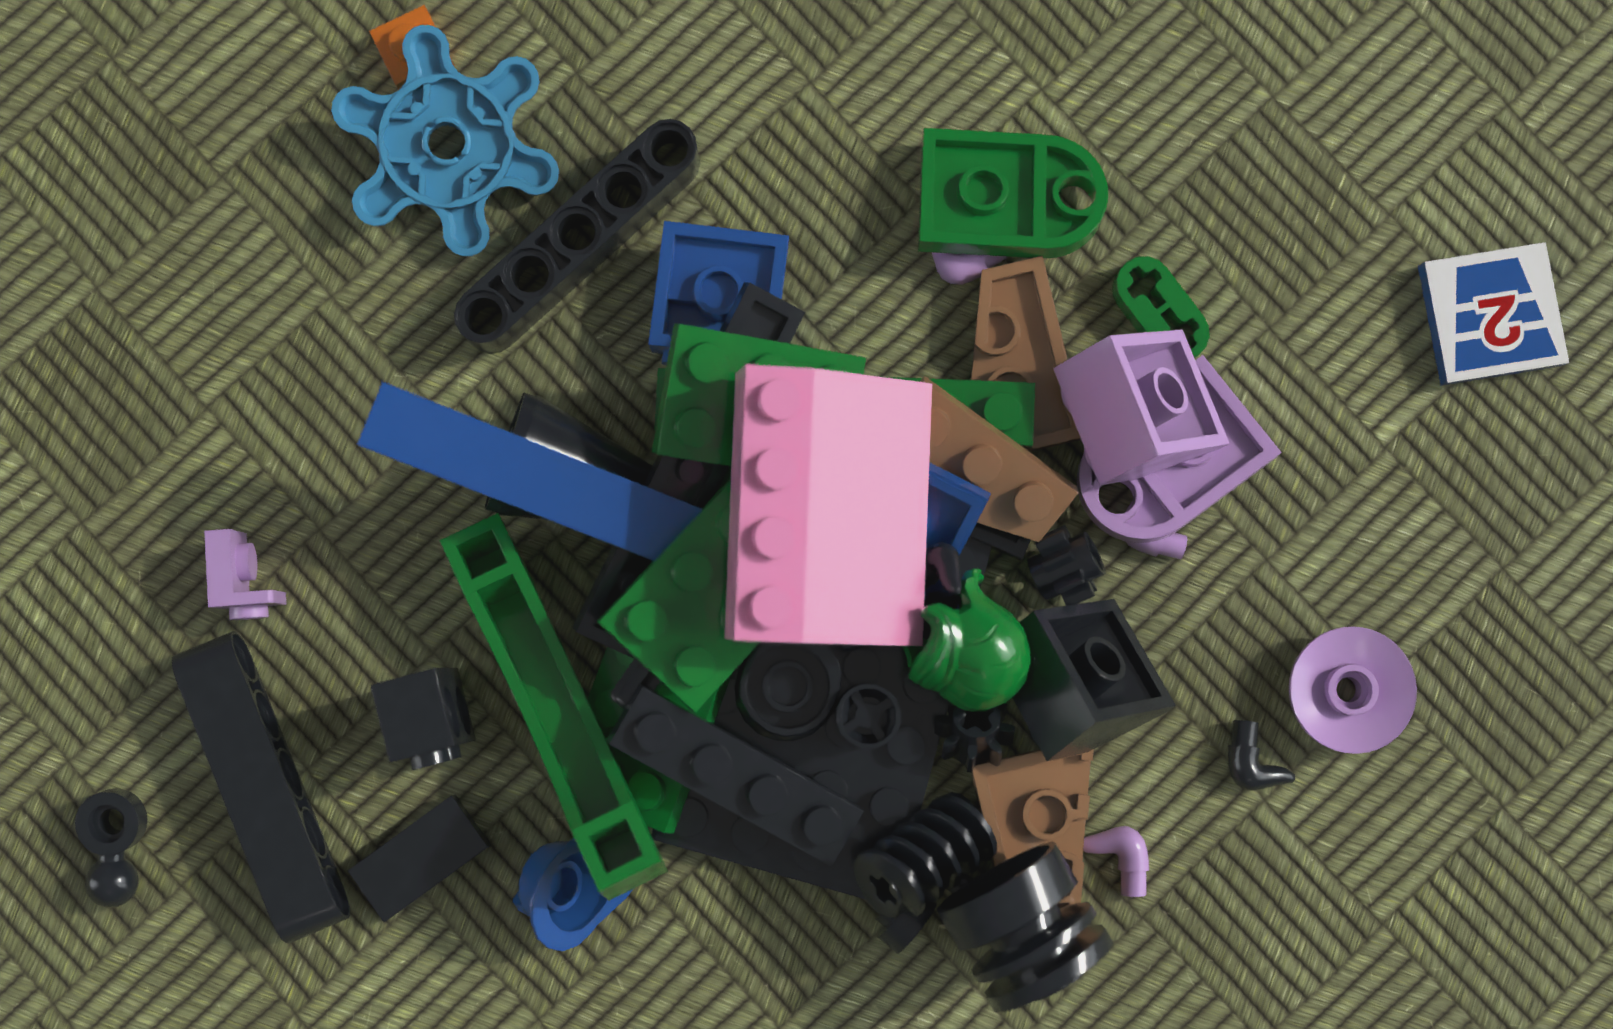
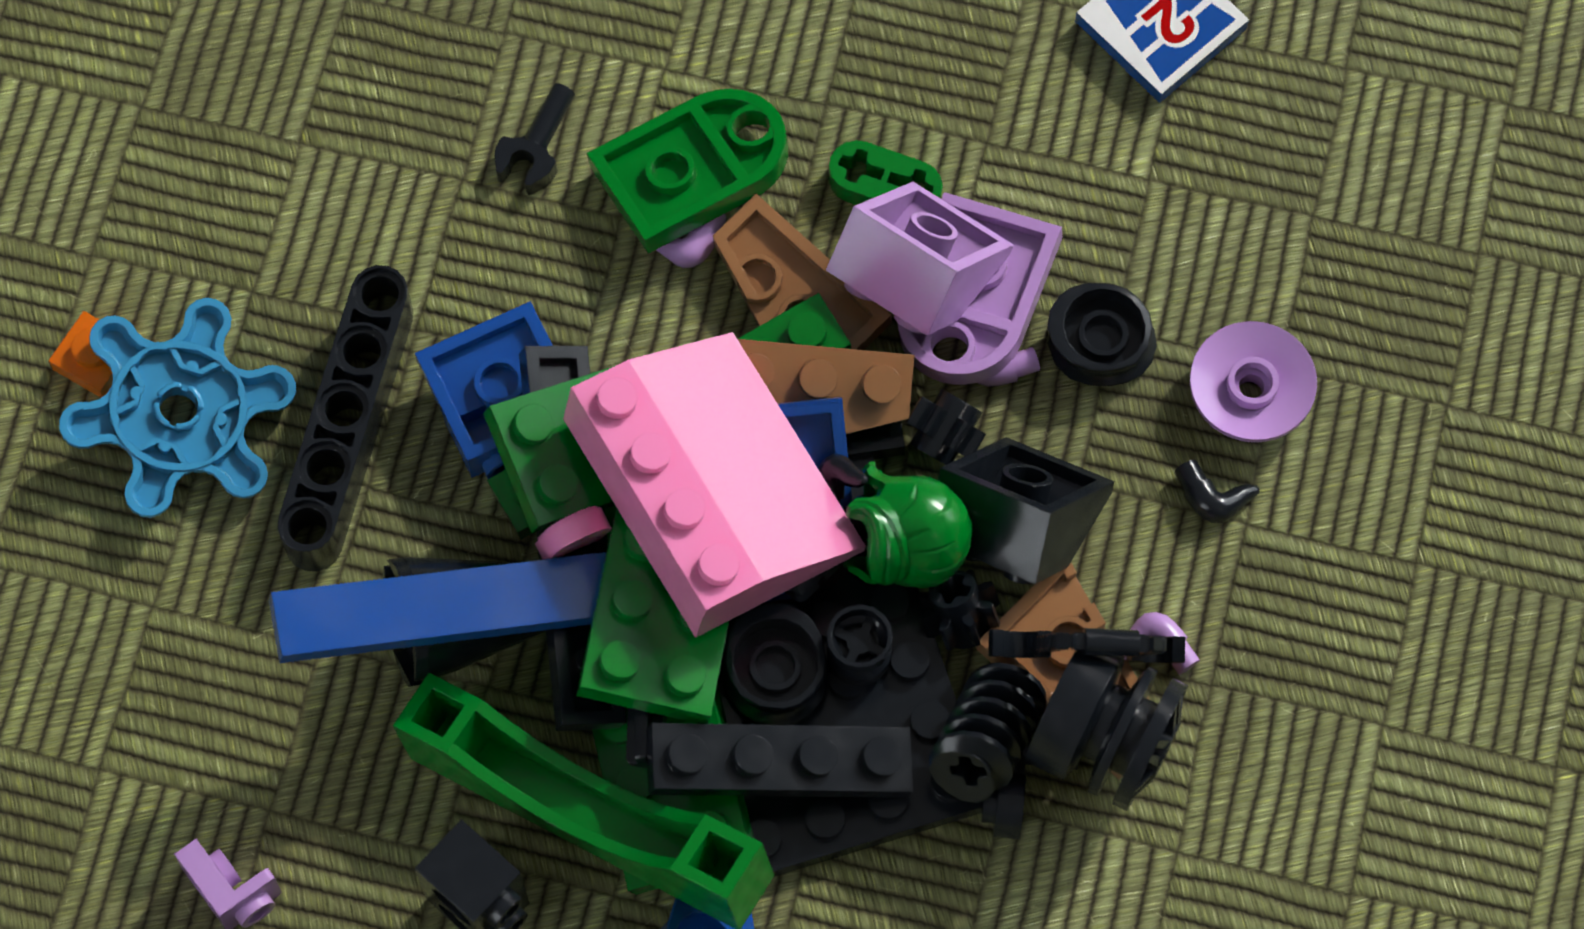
camera: 30 degrees left, 15 degrees down
(683, 477) = (573, 533): none -> bright pink tile
(890, 88) = (535, 143): none -> black bar
(1100, 869) = (1092, 641): none -> black piece
(1251, 564) = (1101, 334): none -> black piece

